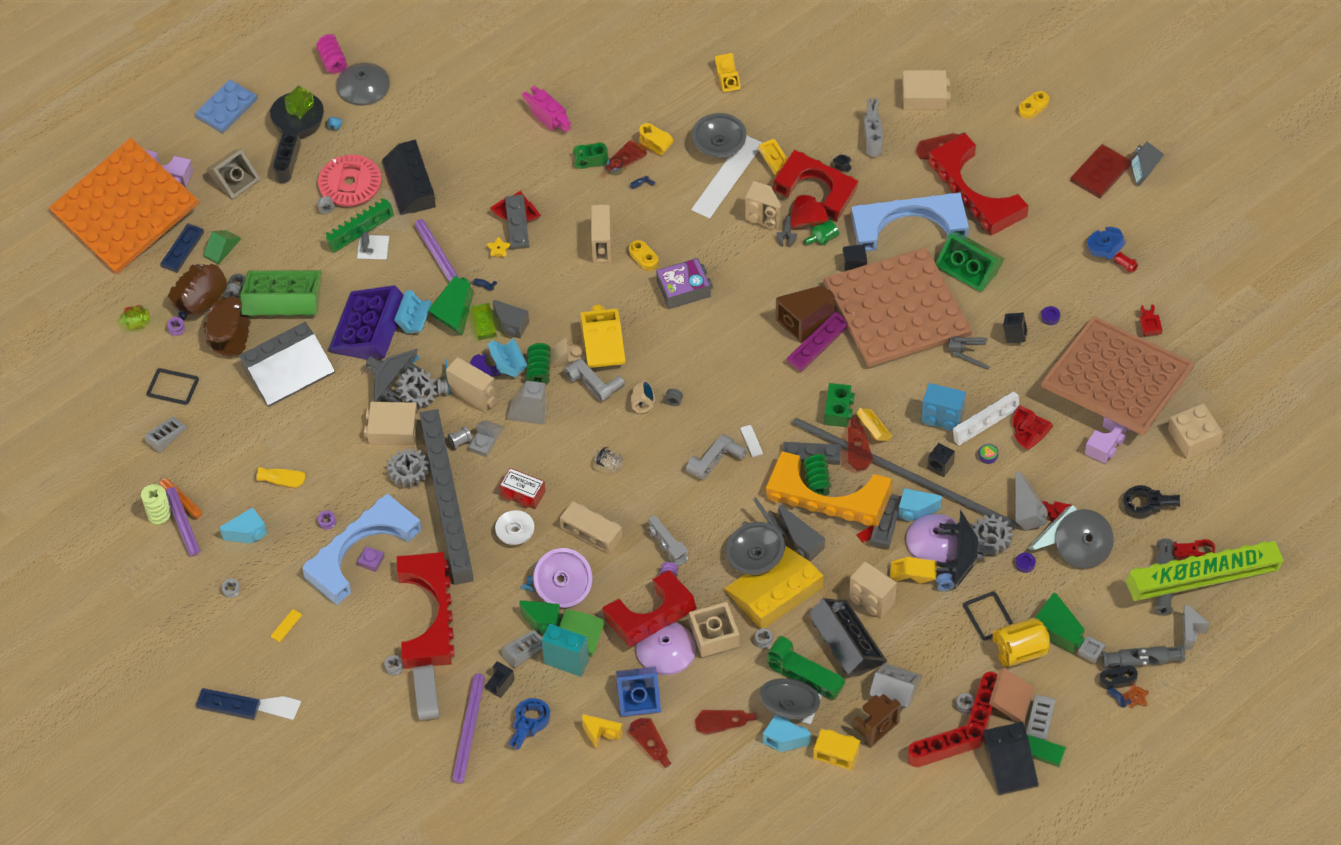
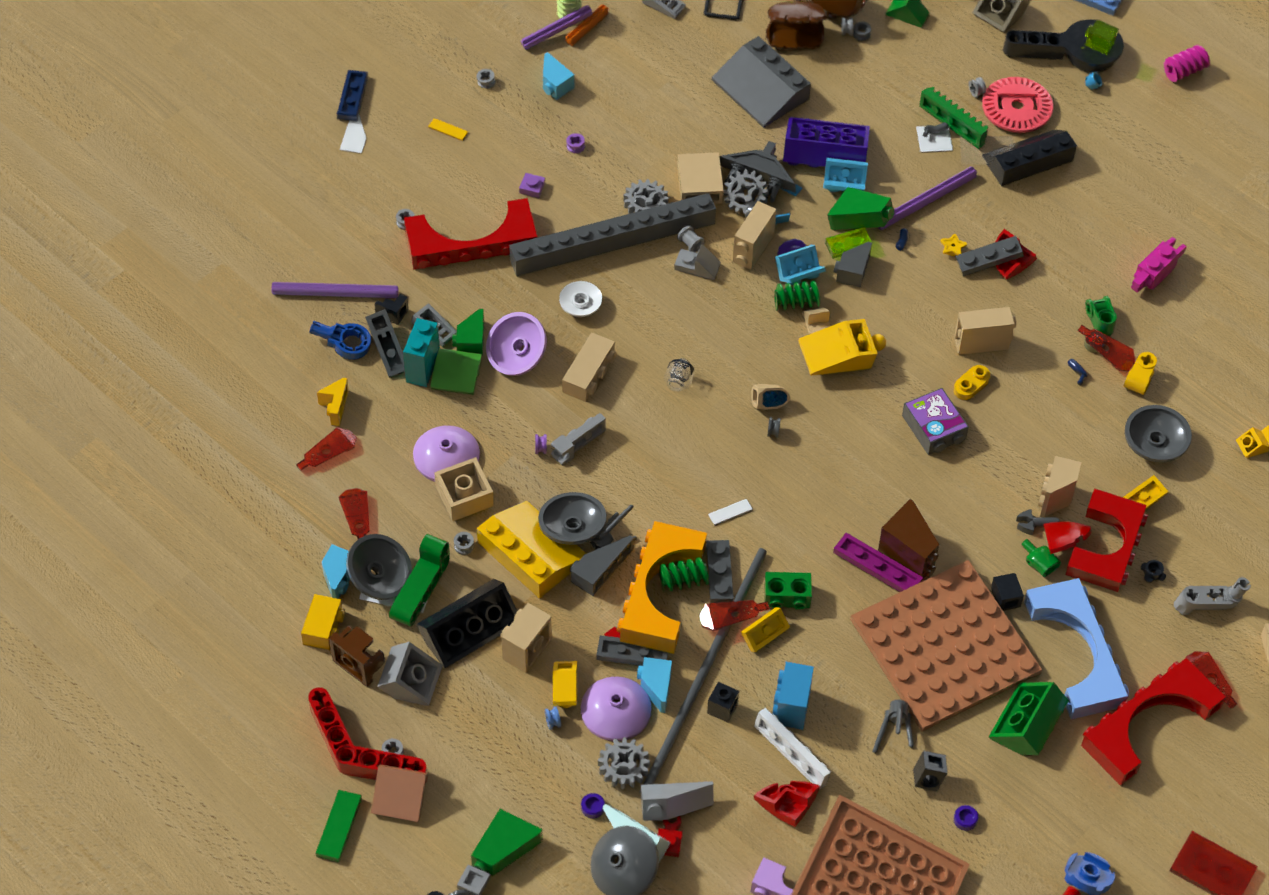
camera: 80 degrees right, 0 degrees up
(281, 292) = (854, 65): bright green slope -> none
(281, 477) = (623, 99): yellow piece -> none
(363, 84) = (1157, 101): dark grey dish -> none
(383, 518) = (513, 147): light blue arch -> none
(426, 692) = (372, 247): light grey beam -> none
(522, 488) = (631, 300): brick -> none
(529, 404) = (736, 292): light grey slope -> none
(540, 684) = (386, 342): none -> dark grey slope
(581, 371) = (773, 357): light grey beam -> none
(636, 627) = (490, 448): red arch -> none
(638, 691) = (386, 429): blue slope -> none
(702, 467) = (684, 465): light grey beam -> none
(726, 178) = (1107, 455): white sticker -> none
(968, 549) = (592, 731): black connector -> none
(973, 619) = (508, 754): black piece -> none
(988, 453) = (744, 757): tile -> none
(1010, 758) = (316, 797): black slope -> none
(1021, 642) = (469, 798): yellow cylinder -> none
(1042, 705) = (377, 822): light grey slope -> none

